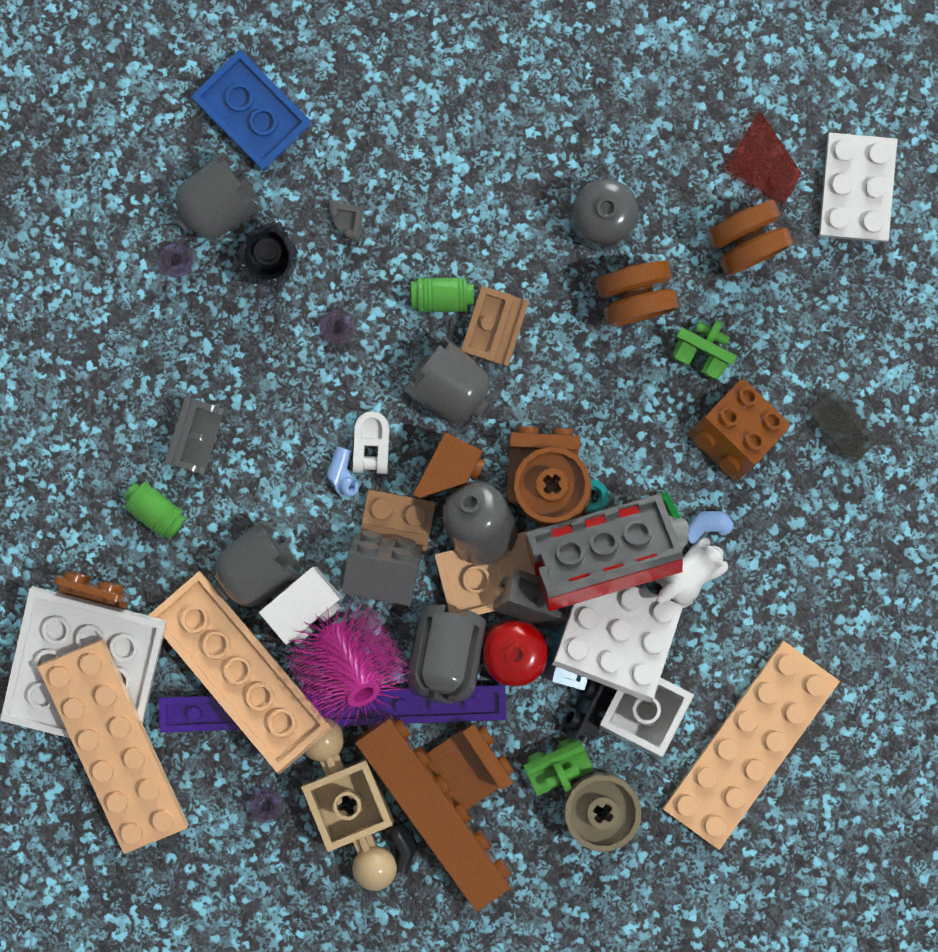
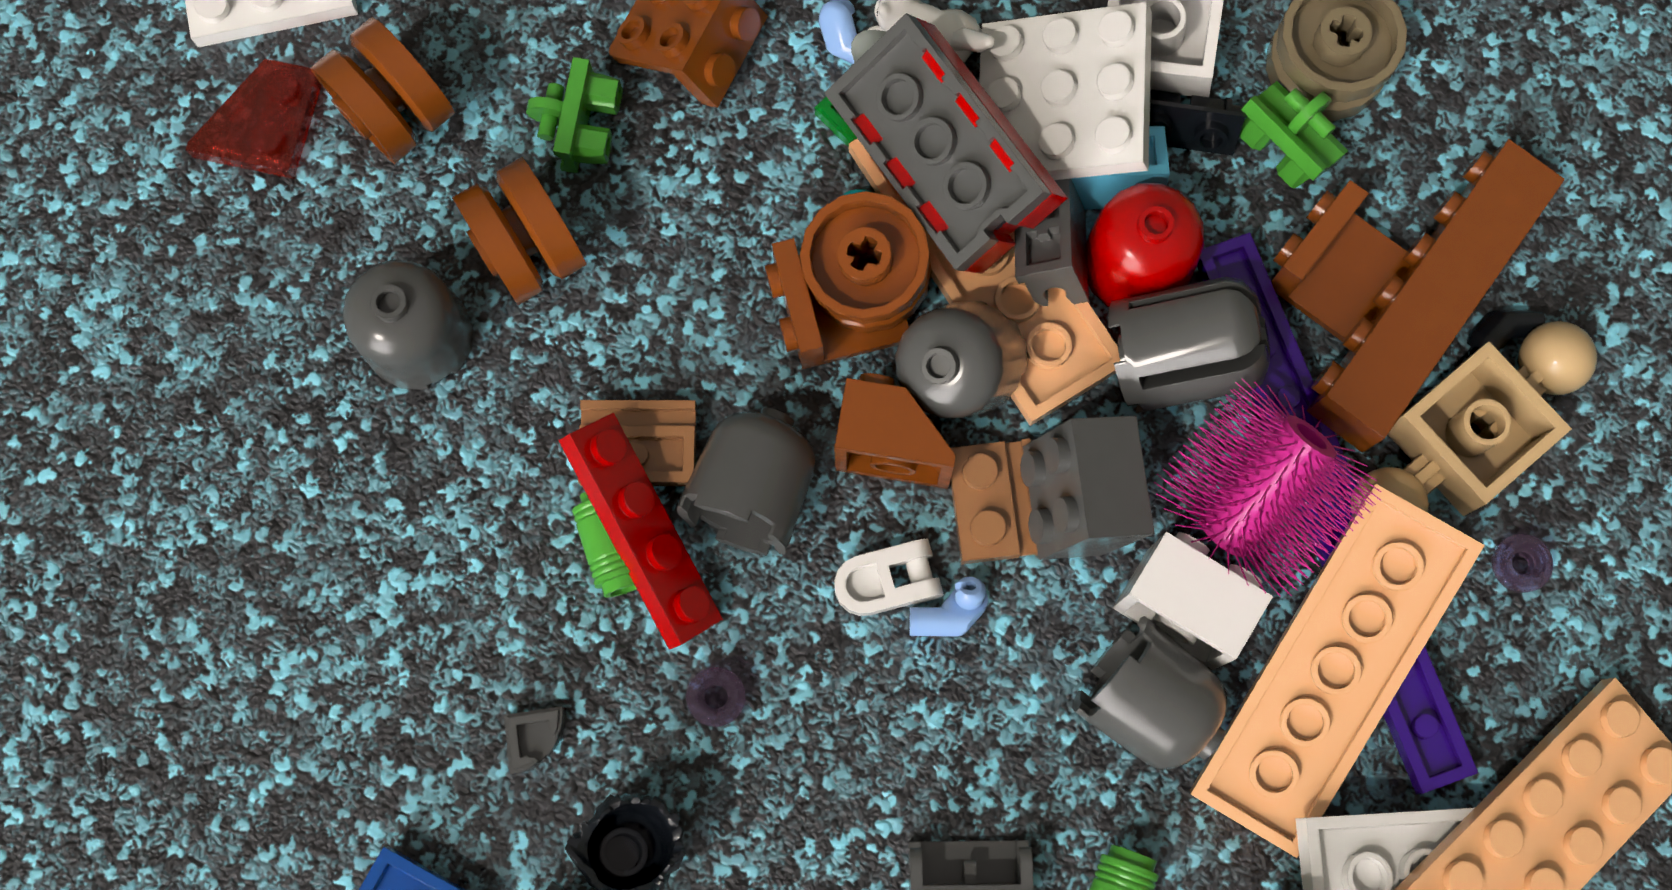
camera: 105 degrees left, 10 degrees down
(440, 312) = (641, 530): none -> red plate

